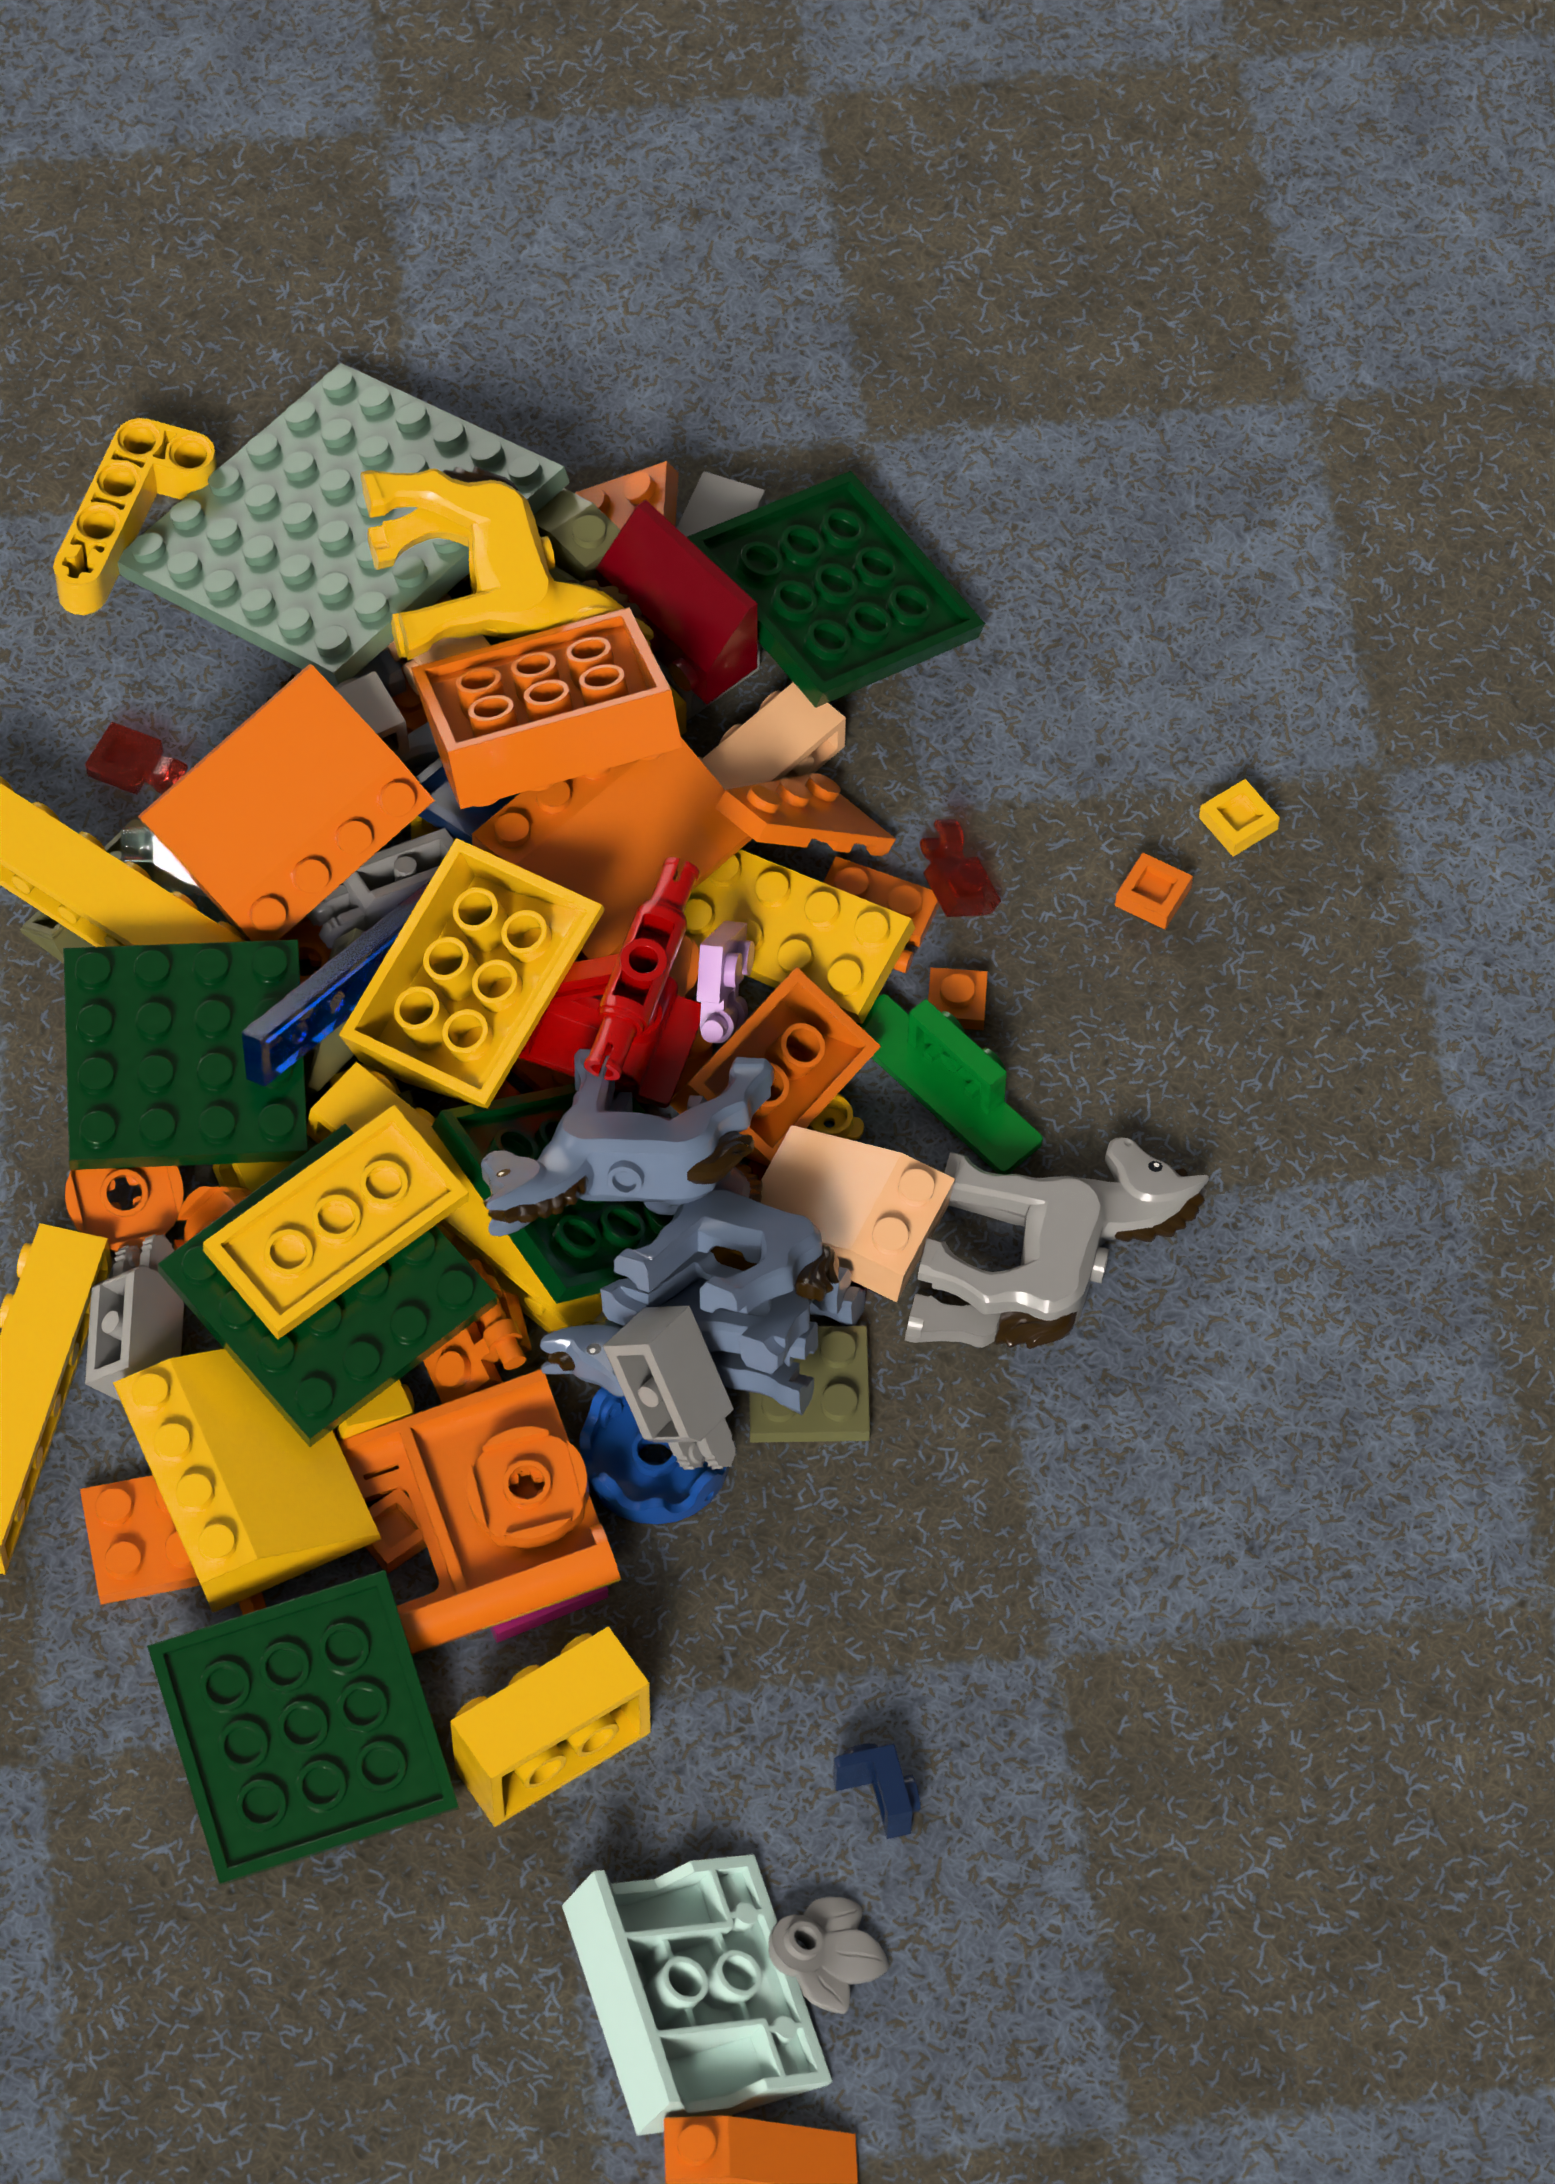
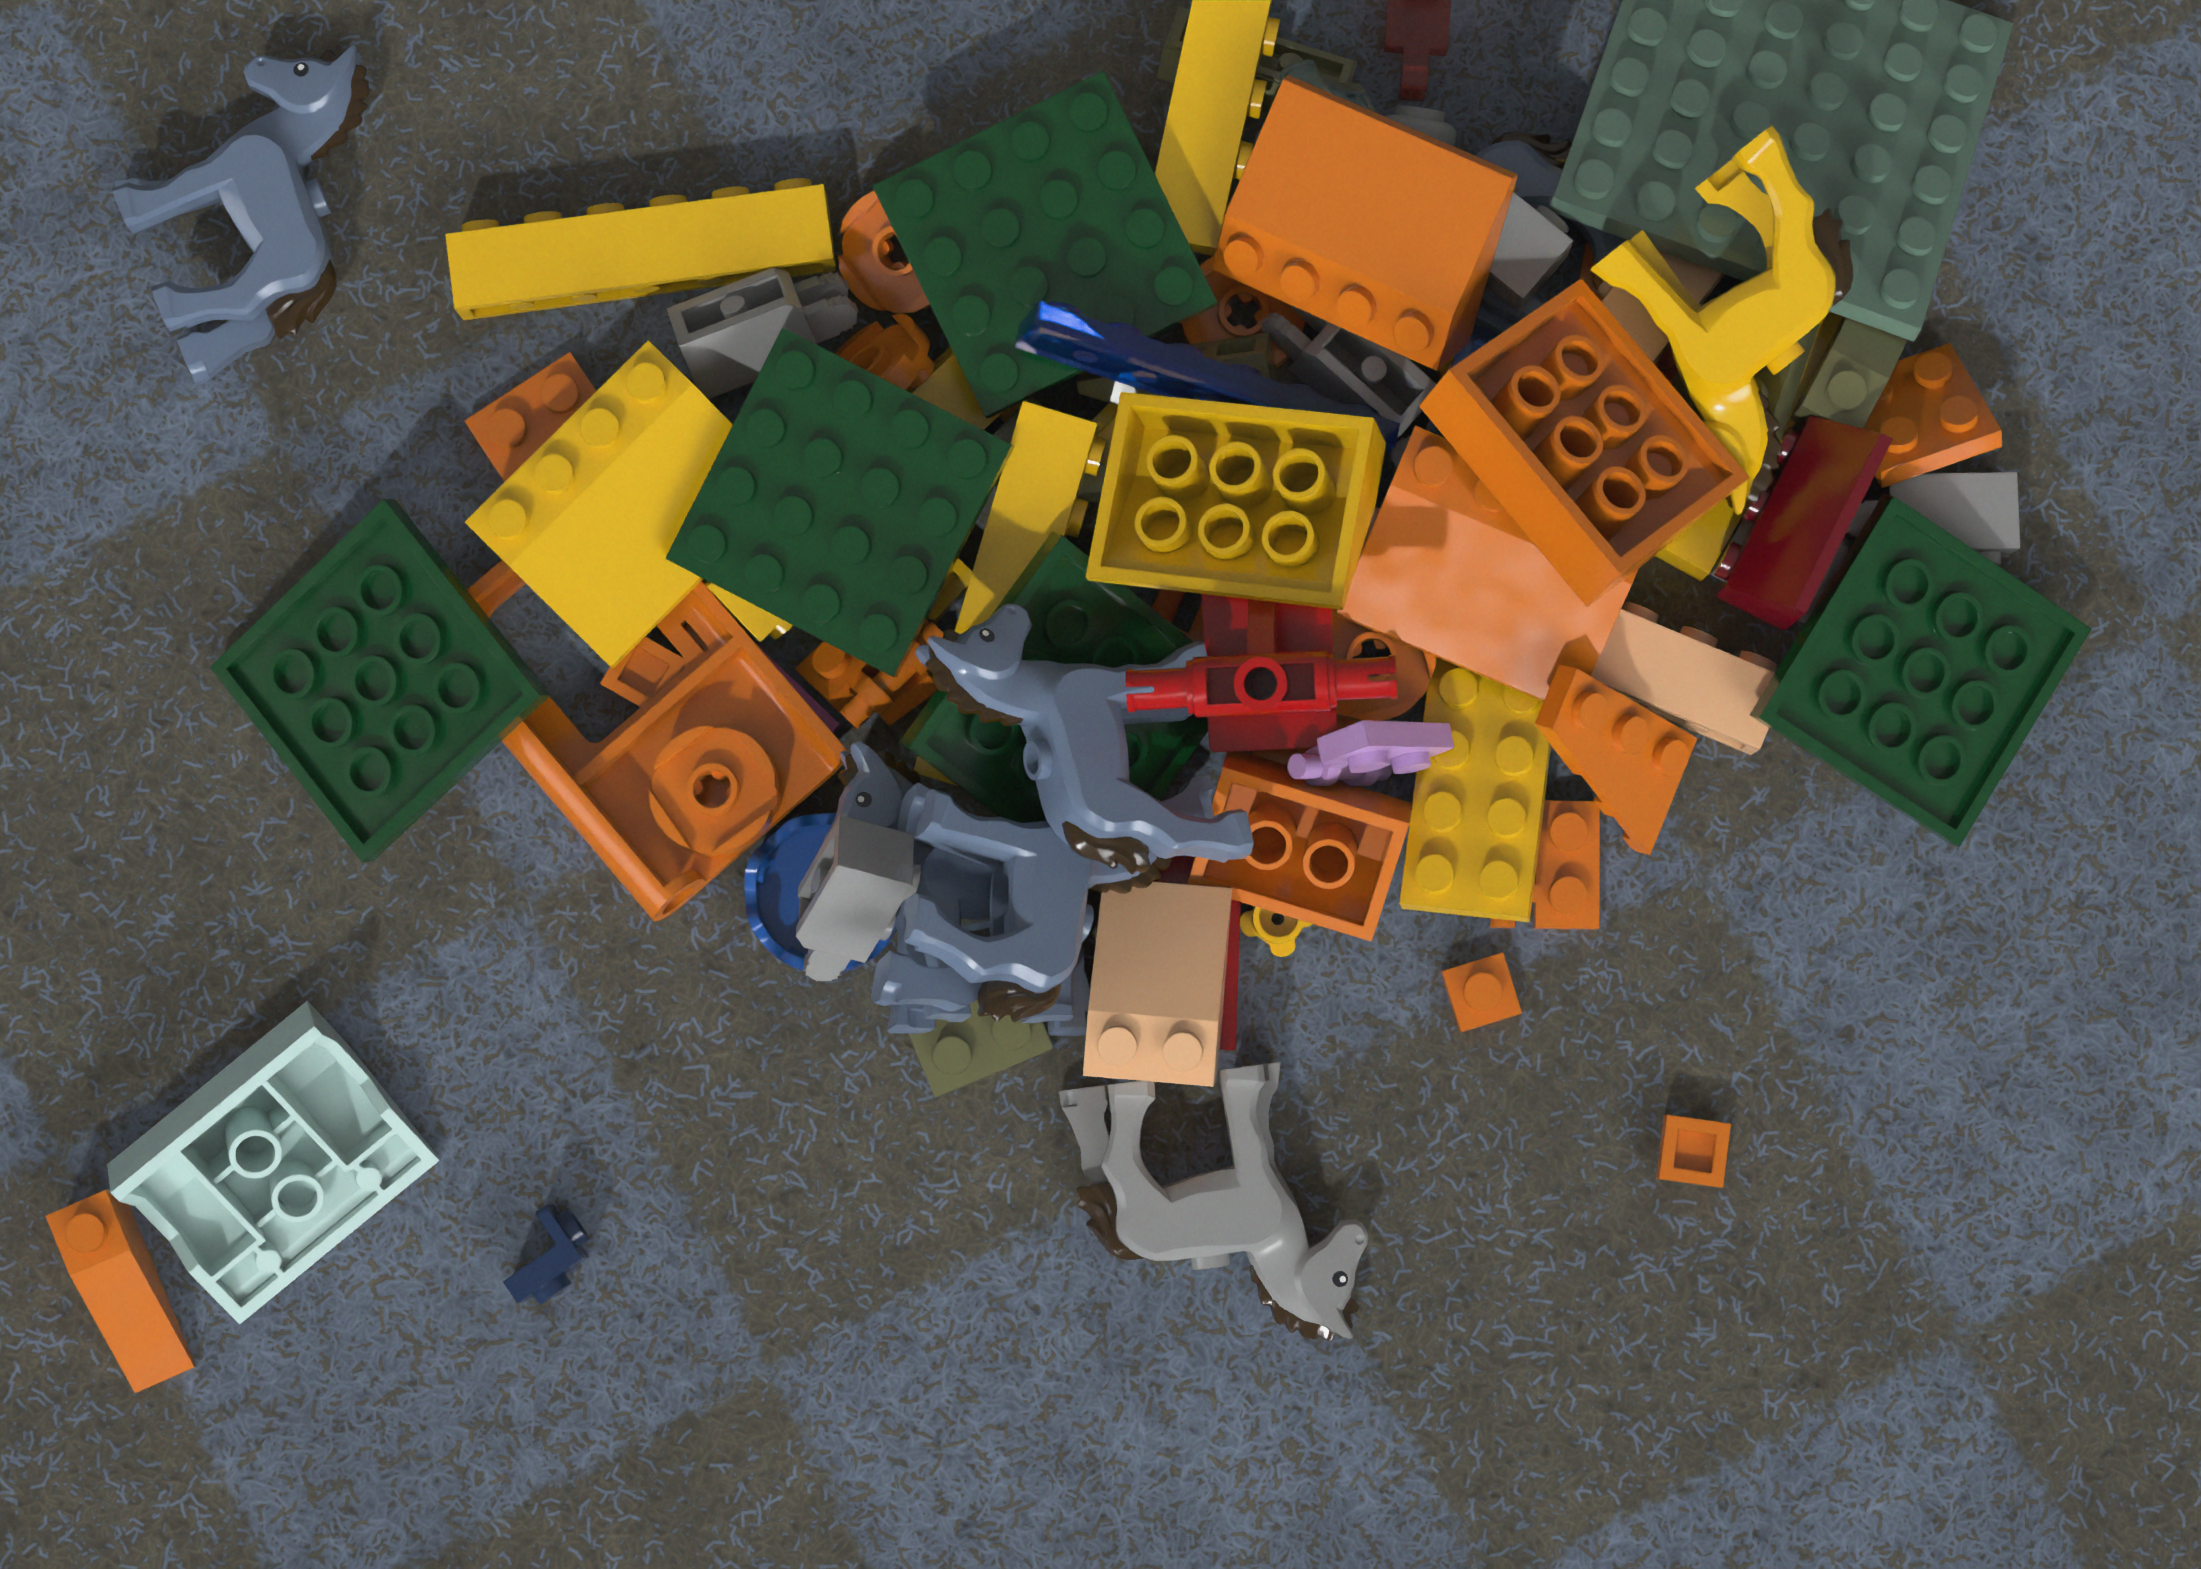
camera: 70 degrees right, 25 degrees up
(335, 1222) = (882, 487): yellow plate -> none
(550, 1725) = (472, 914): yellow brick -> none
(834, 1953) = (363, 1281): light grey plate -> none
(951, 1079) = (1370, 1021): green bracket -> none
(957, 880) = (1620, 939): clear red plate -> none
(1239, 817) = (1823, 1208): yellow plate -> none

